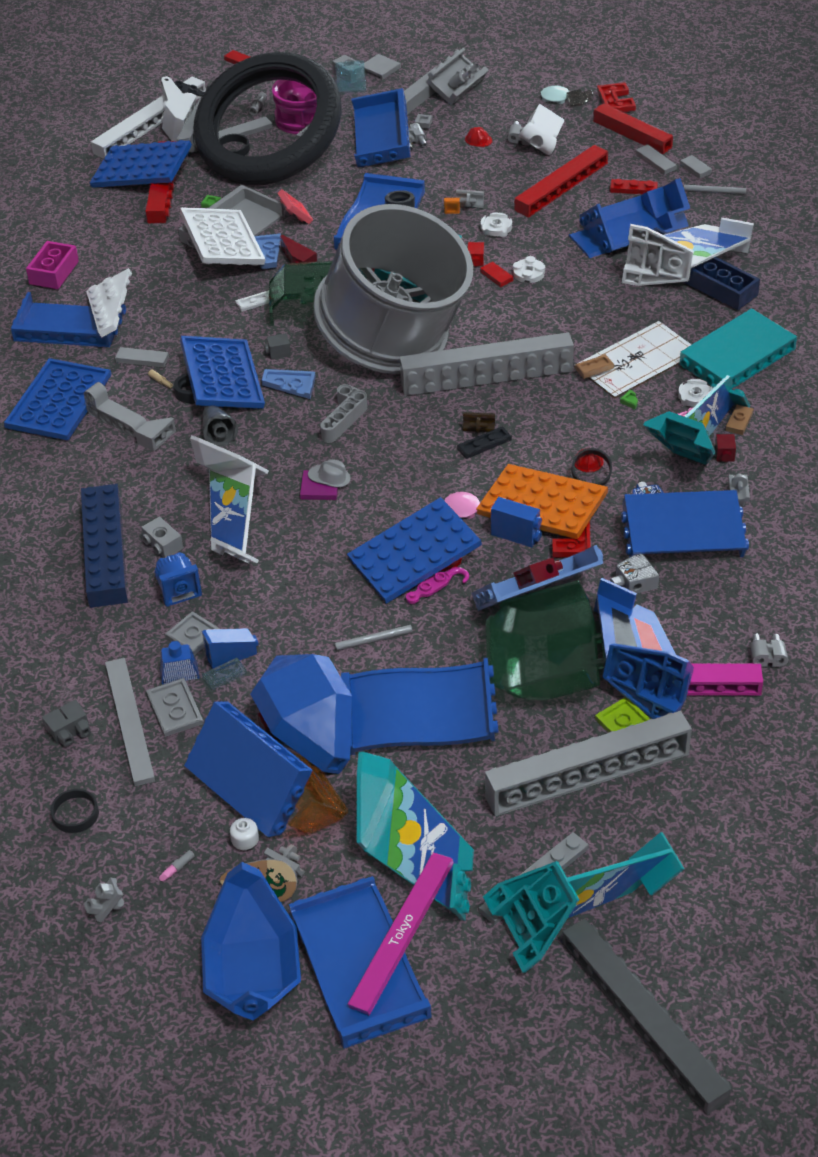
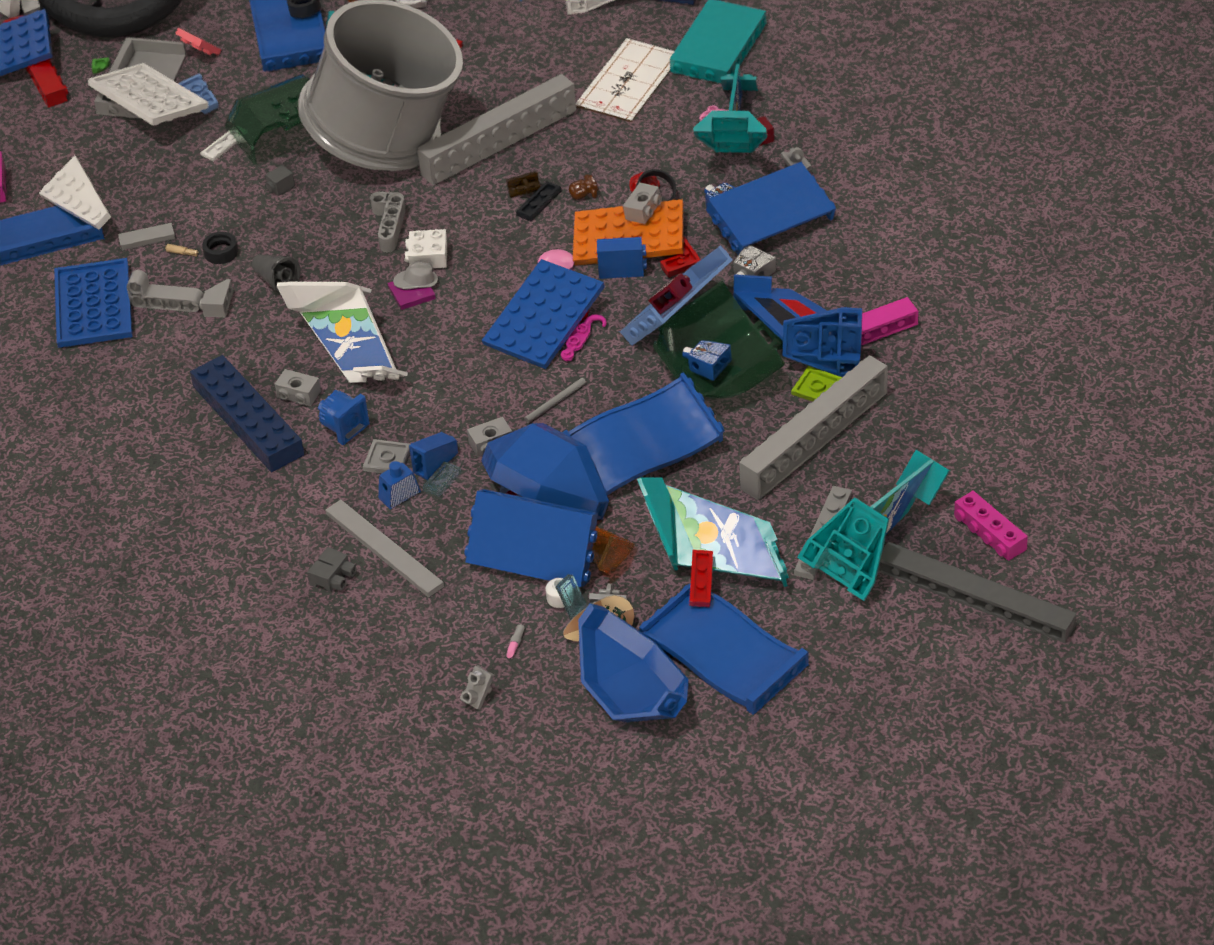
camera: 25 degrees left, 0 degrees up
(70, 794) = (391, 651): black tyre -> none
(174, 707) = (416, 522): light grey tile -> none
(221, 372) = (244, 221): blue plate -> none
(249, 842) = (571, 595): none -> clear light blue tile
(289, 645) = (486, 432): none -> light grey brick
(290, 381) = (315, 208): medium blue wing -> none
(296, 252) = (230, 86): dark red slope -> none
(356, 451) = (427, 247): none -> white brick
(376, 878) = (701, 578): none -> red plate
(400, 934) = (749, 610): dark pink tile -> none
(525, 444) = (581, 188): none -> reddish brown animal
(529, 270) = (479, 29): white plate -> none
(532, 652) = (708, 358): none -> blue torso
(565, 477) = (642, 203): none -> light grey brick
(594, 366) = (597, 98): medium nougat plate -> none
(629, 399) = (647, 118): bright green tile -> none
(687, 395) = (711, 96): white plate -> none
(703, 945) = (990, 525): none -> dark pink brick
(739, 419) = (757, 102): medium nougat plate -> none
(769, 653) = (906, 287): light grey piece -> none

